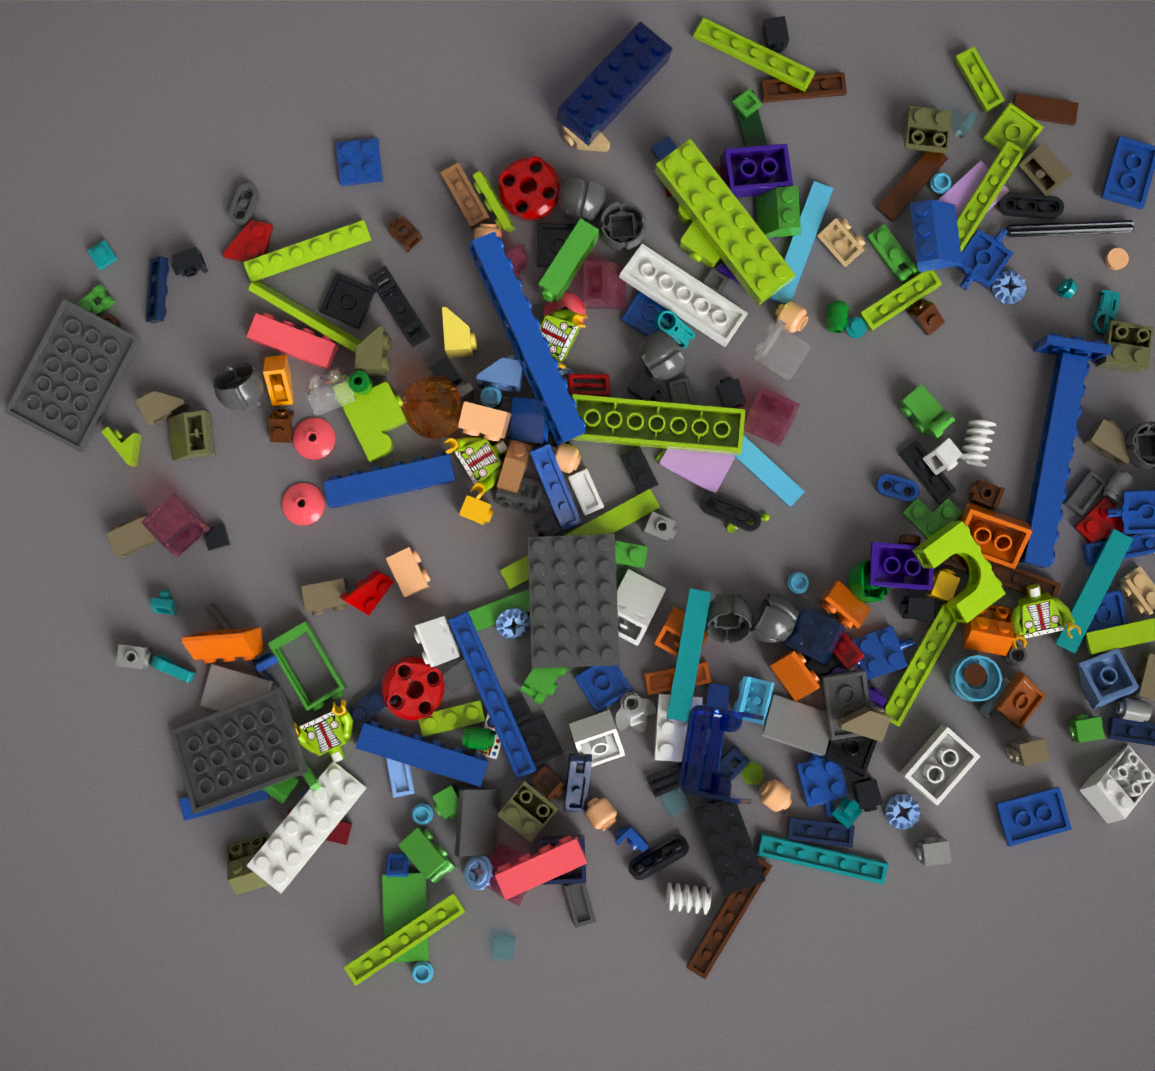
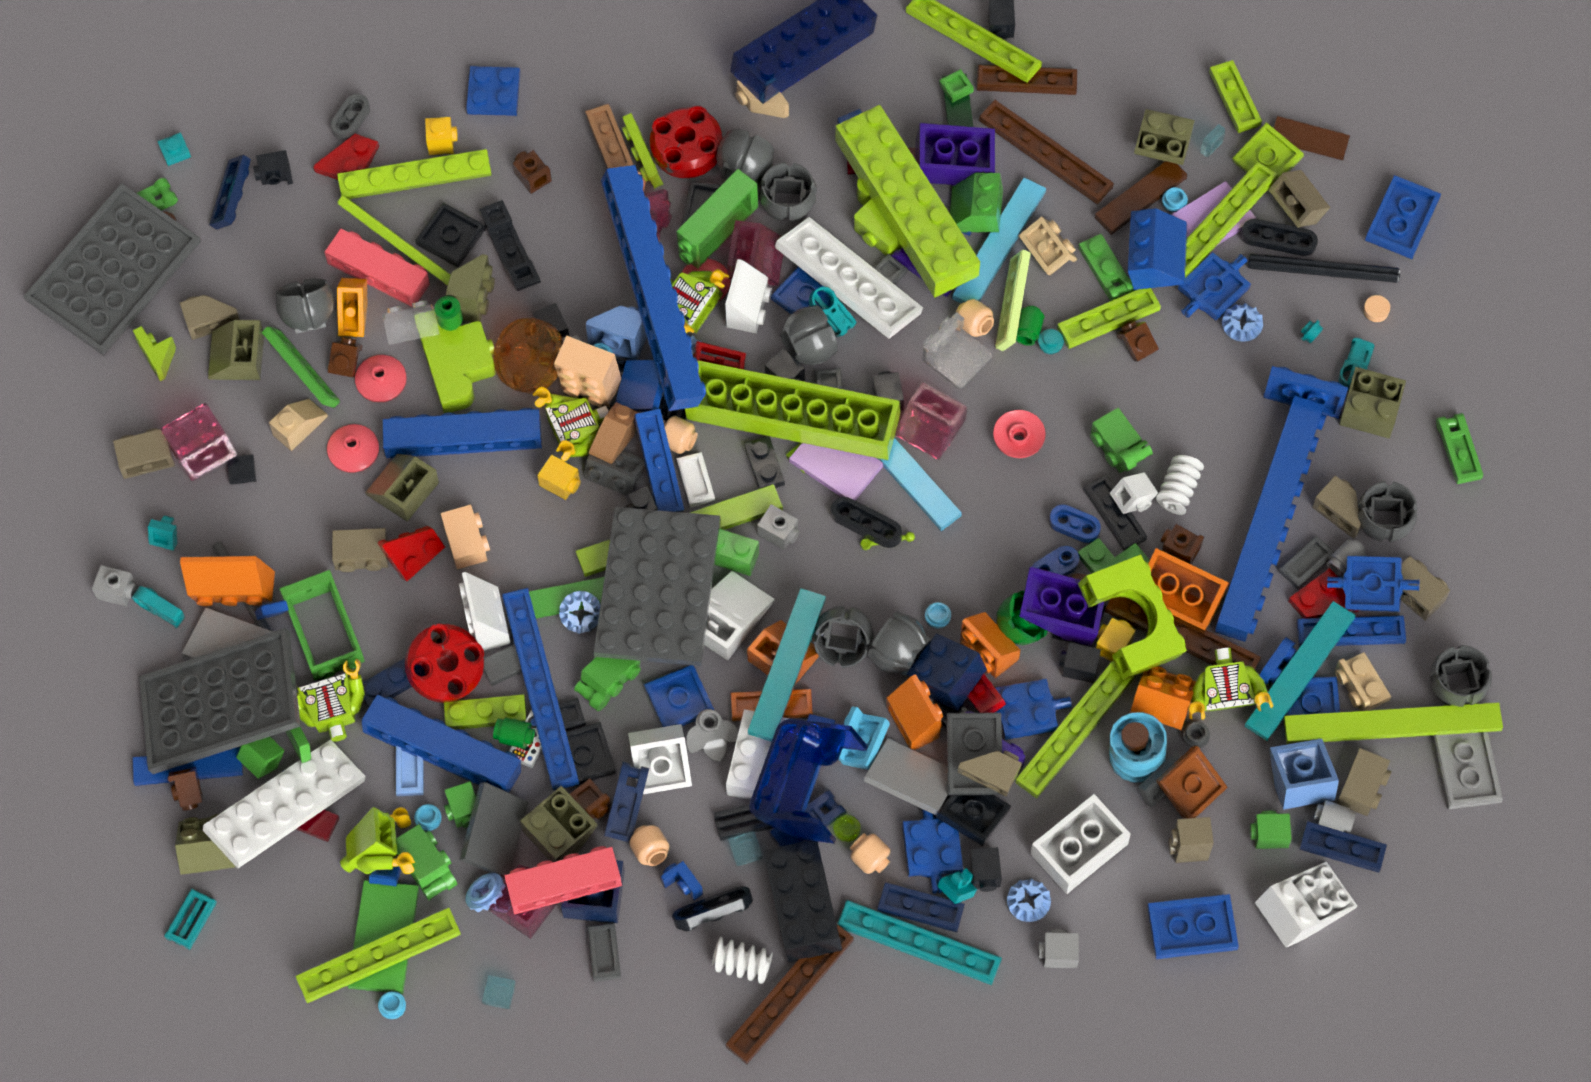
camera: 10 degrees right, 20 degrees down
(226, 821) = (186, 788): none -> reddish brown brick
(246, 441) = (301, 367): none -> bright green tile
(254, 489) = (296, 422): none -> tan slope
(258, 906) = (188, 943): none -> teal tile
(322, 212) = (440, 135): none -> yellow brick
(349, 535) = (404, 485): none -> olive slope
(384, 850) = (373, 843): none -> lime torso
(457, 336) = (572, 285): light yellow slope -> none
(603, 328) = (747, 298): none -> white slope
(820, 296) = (1012, 300): none -> yellowish green tile
(829, 154) = (1046, 152): none -> reddish brown plate
(849, 408) = (1023, 424): none -> coral dish
(886, 526) = (1054, 563): none -> blue plate
(1070, 590) = (1283, 654): none -> blue plate

